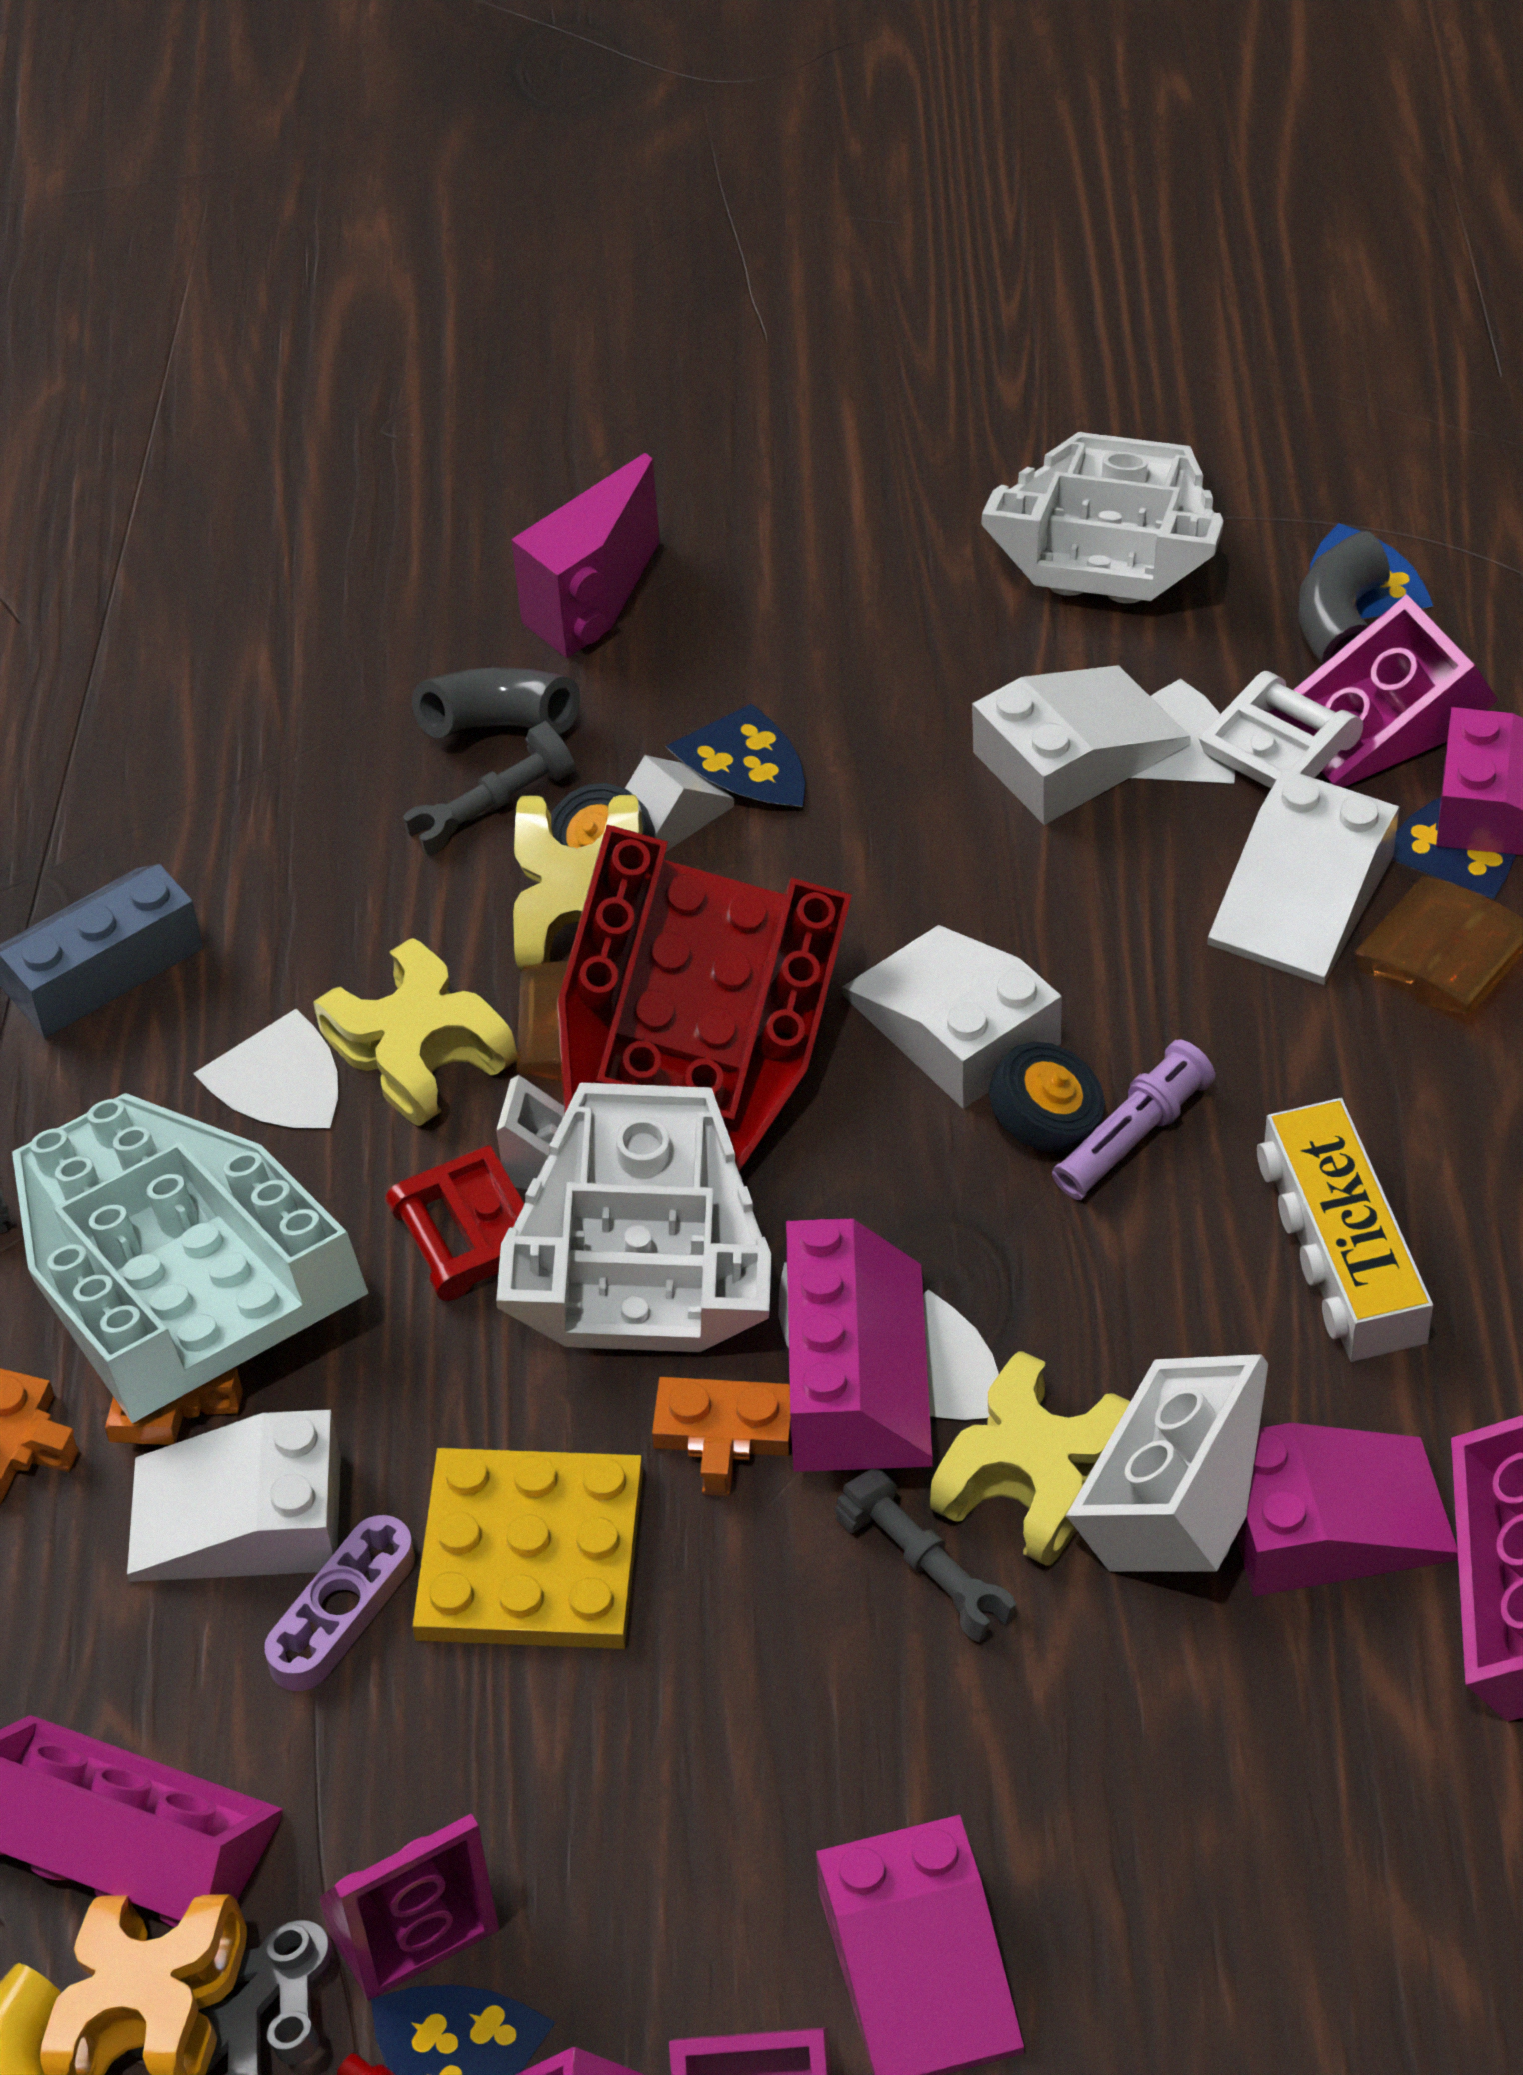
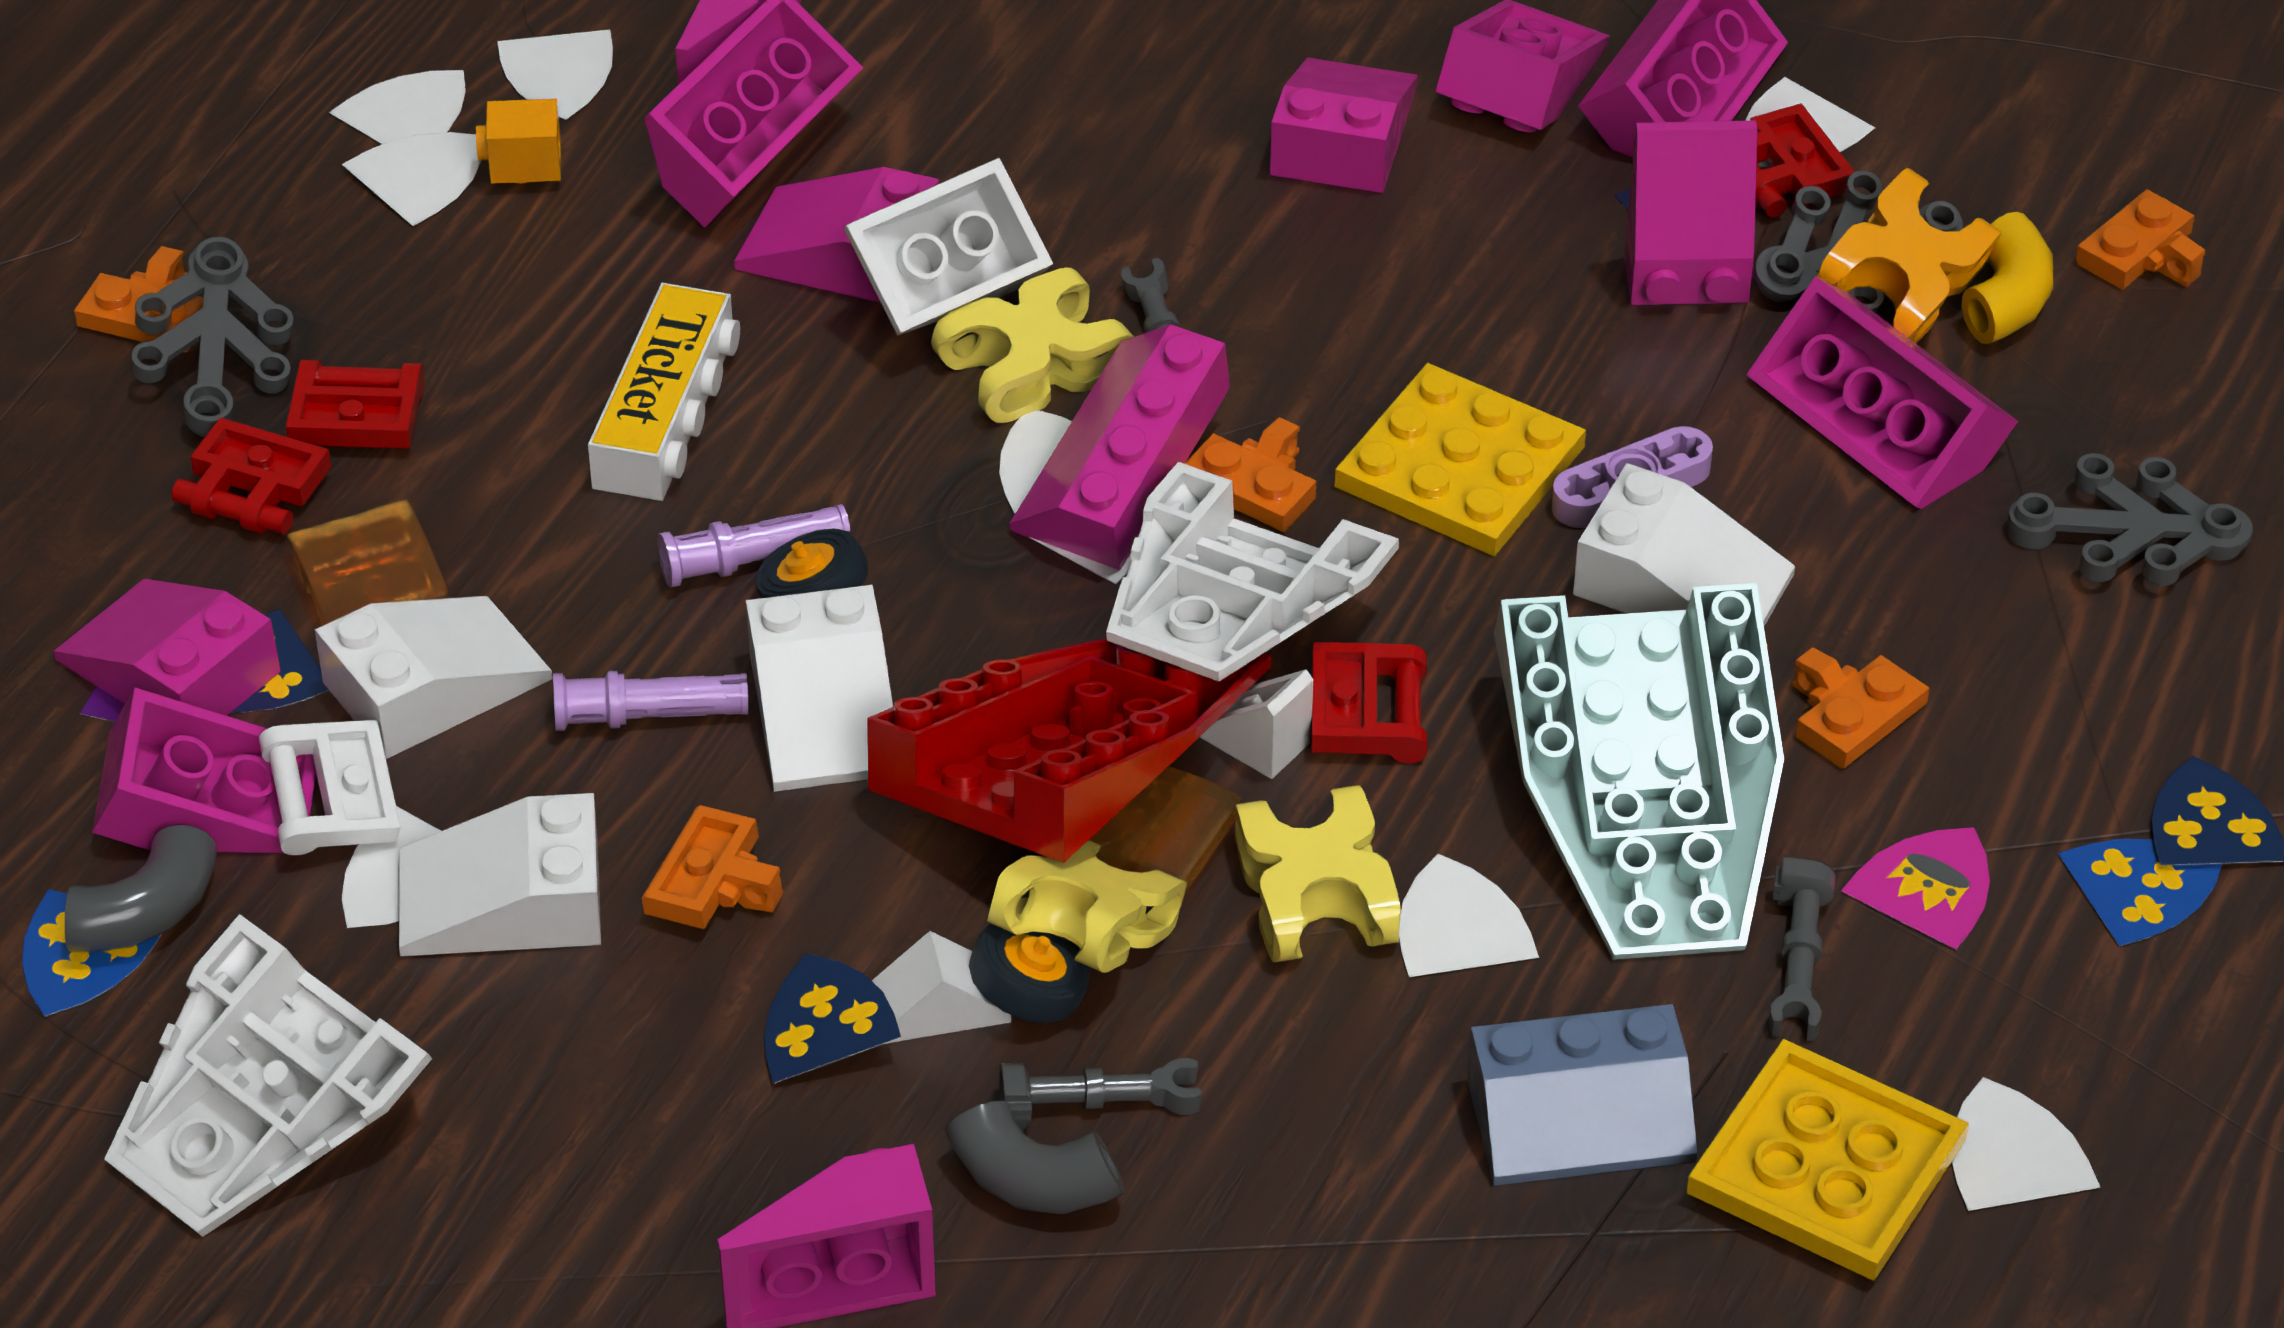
camera: 155 degrees left, 5 degrees down
(923, 816) = (711, 868): none -> orange hinge
(1121, 921) = (619, 699): none -> lavender pin

